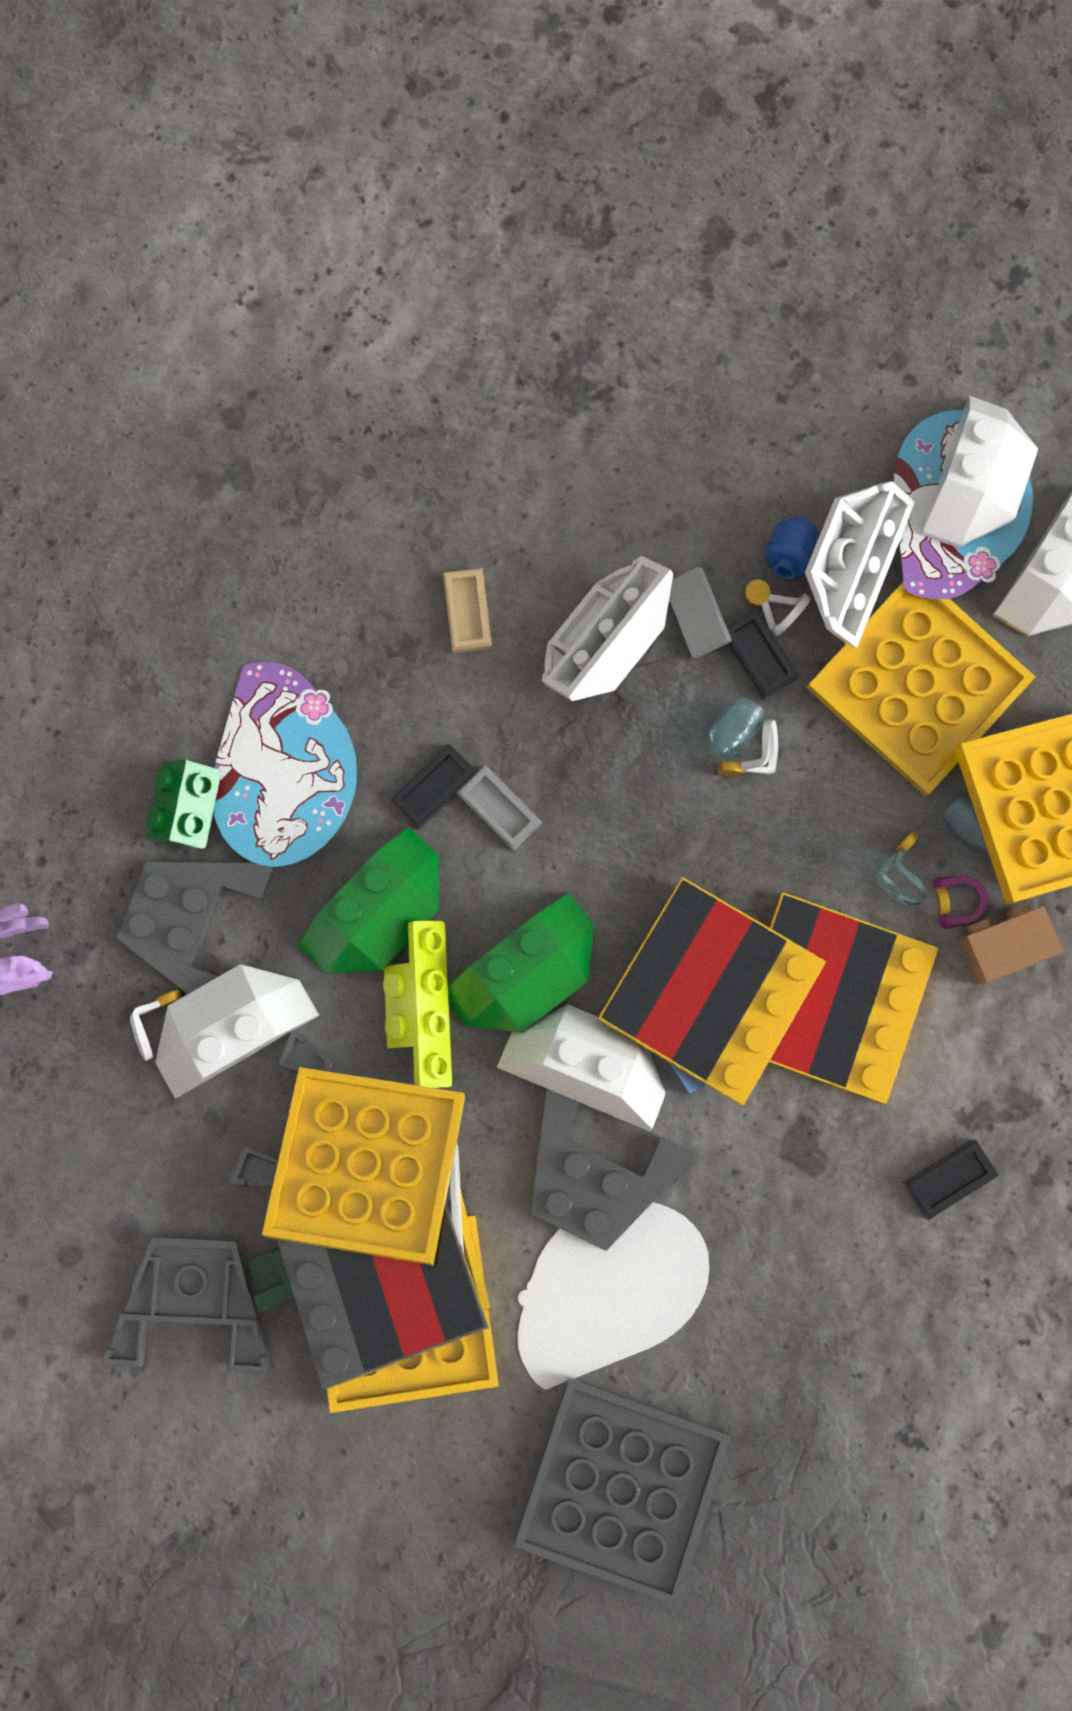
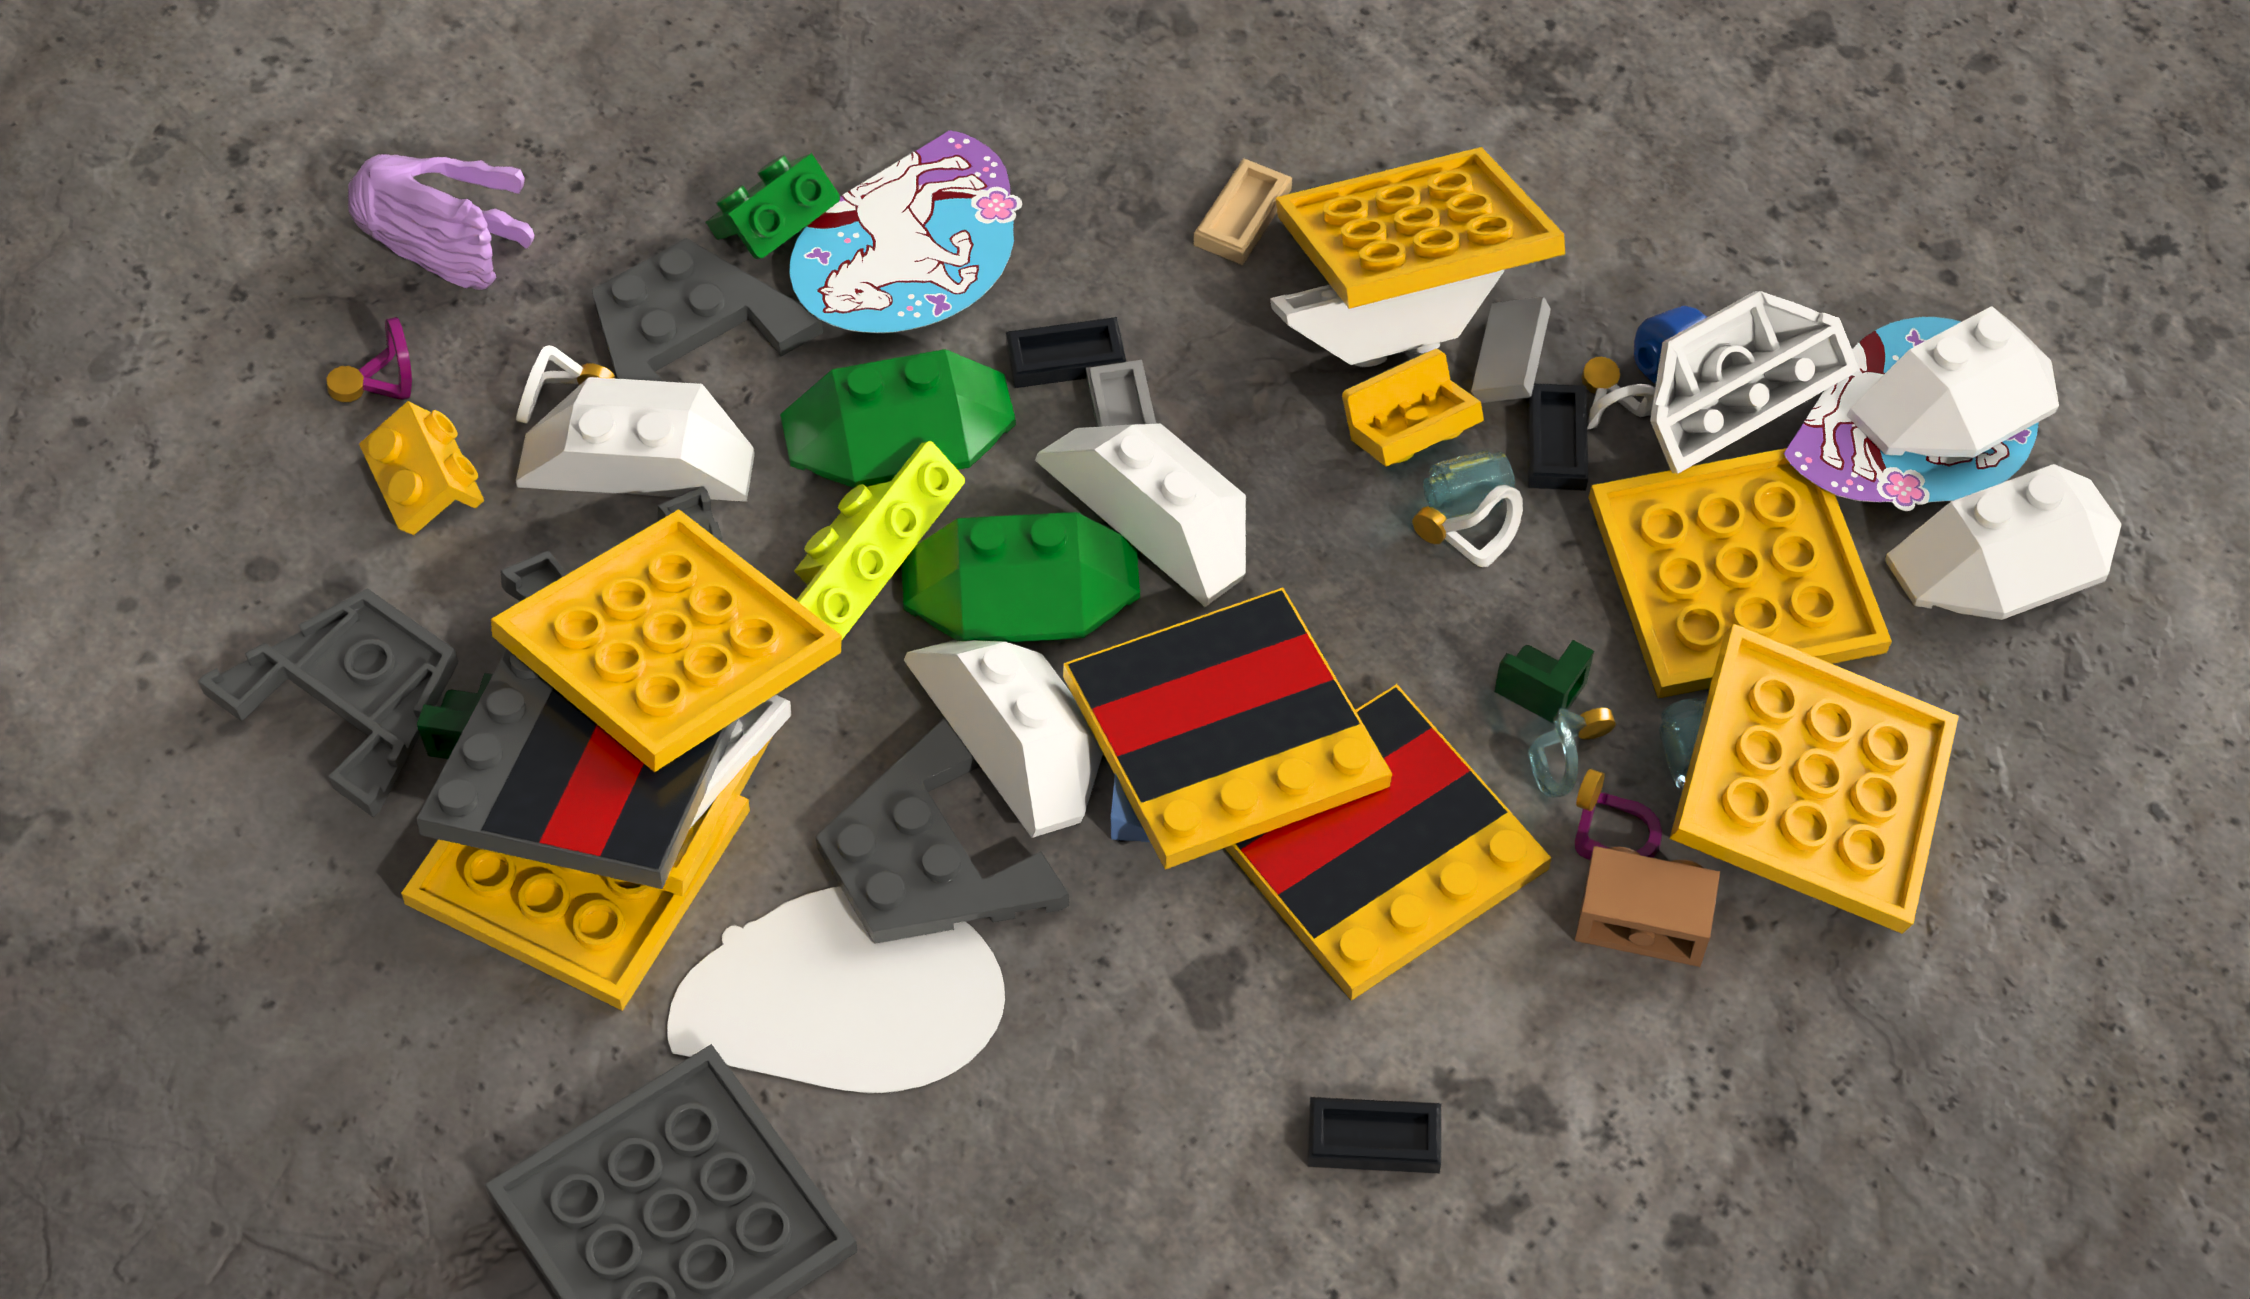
camera: 30 degrees right, 25 degrees down
(18, 1100) = (349, 383): none -> magenta piece
(113, 1131) = (419, 466): none -> yellow bracket
(564, 860) = (1158, 500): none -> white wedge
(595, 569) = (1418, 227): none -> yellow plate
(670, 699) = (1409, 409): none -> yellow bracket
(860, 830) = (1542, 681): none -> dark green panel

